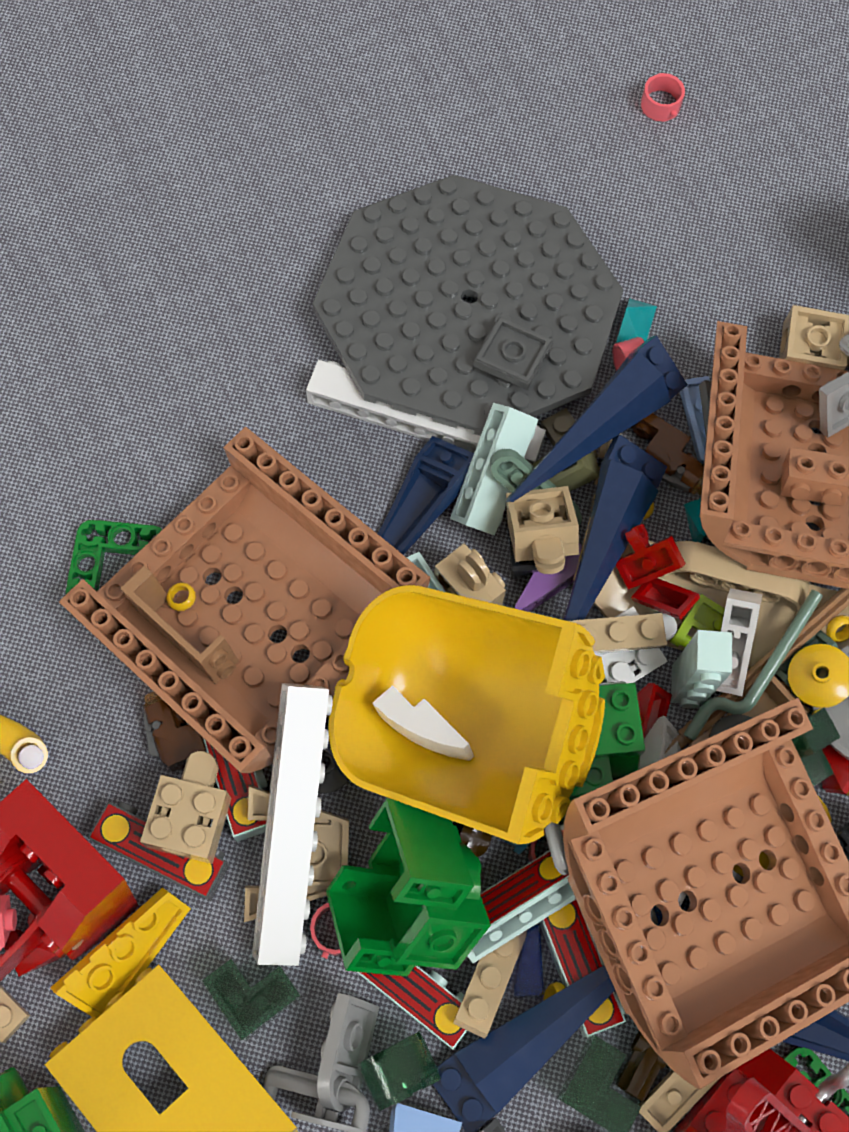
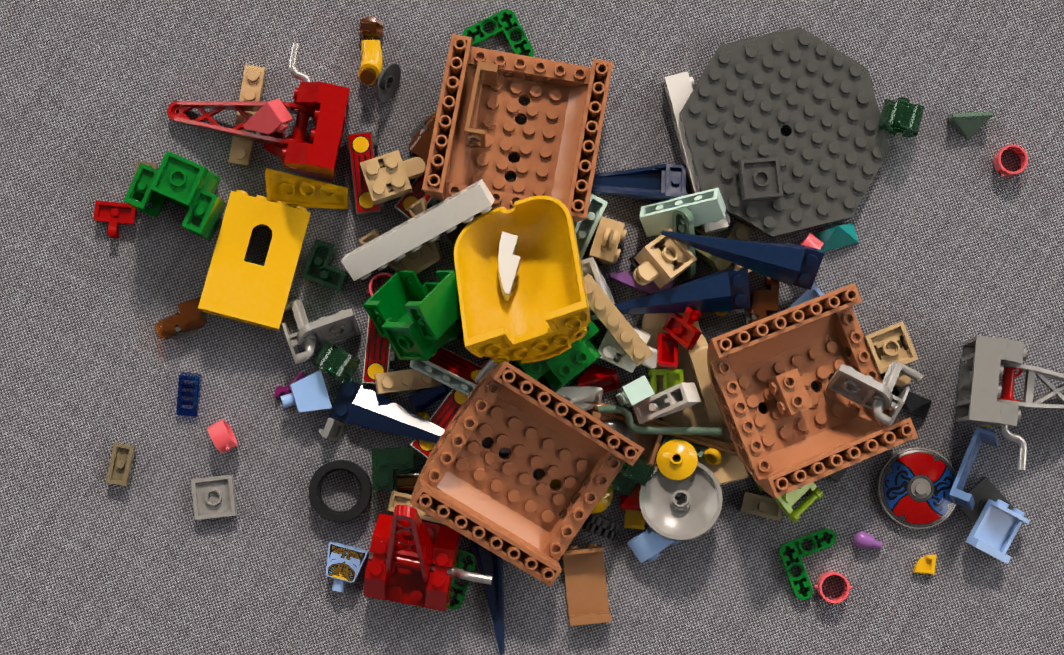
camera: 50 degrees right, 15 degrees up
(58, 736) = (388, 82): none -> dark grey dish
(181, 606) = (497, 86): yellow piece -> none
(538, 168) = (901, 117): none -> clear green brick
(589, 112) = (970, 122): none -> sand green slope

